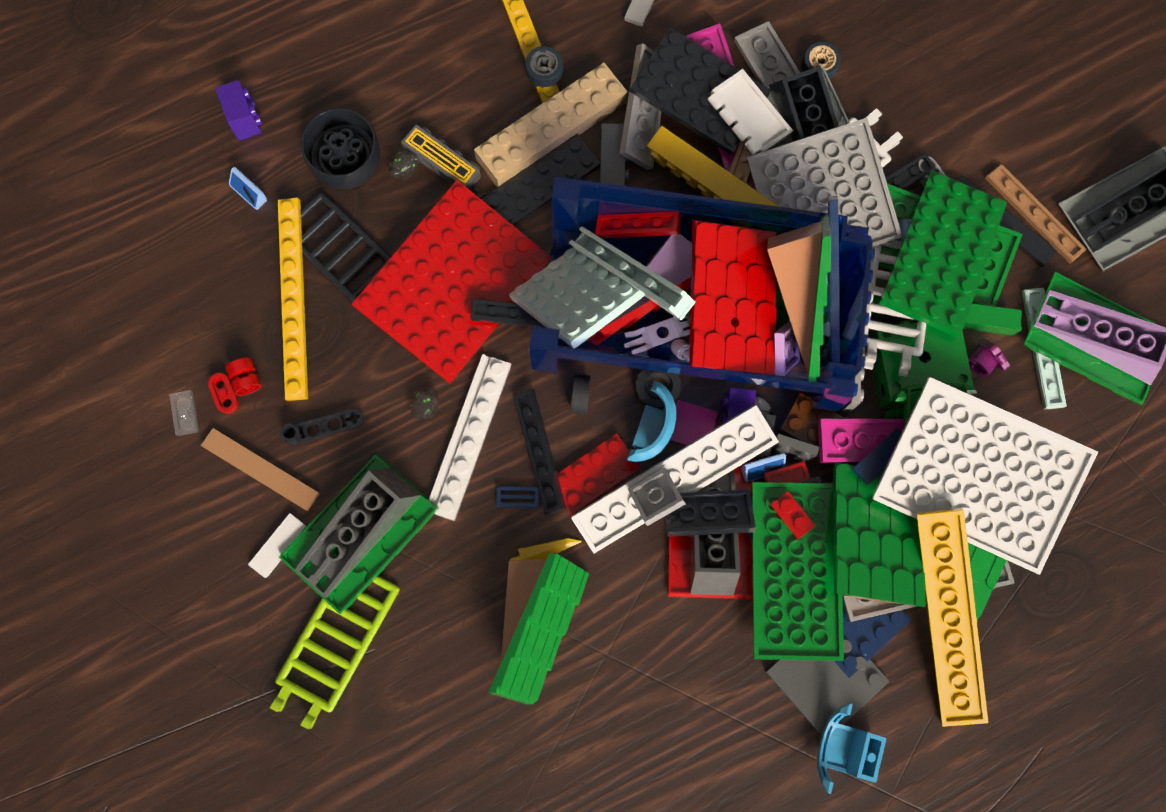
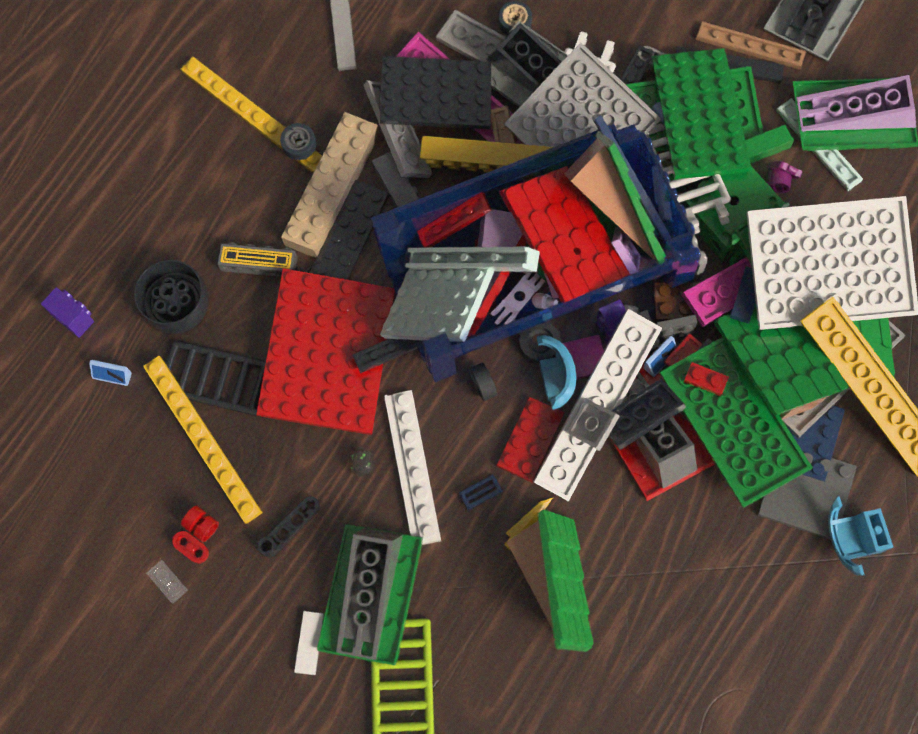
camera: 20 degrees left, 5 degrees down
(260, 469) = (257, 591): medium nougat tile -> none
(403, 165) = (229, 282): clear smoke head -> none
(539, 452) = (477, 446): black tile -> none
(750, 111) = (485, 87): white hinge -> none

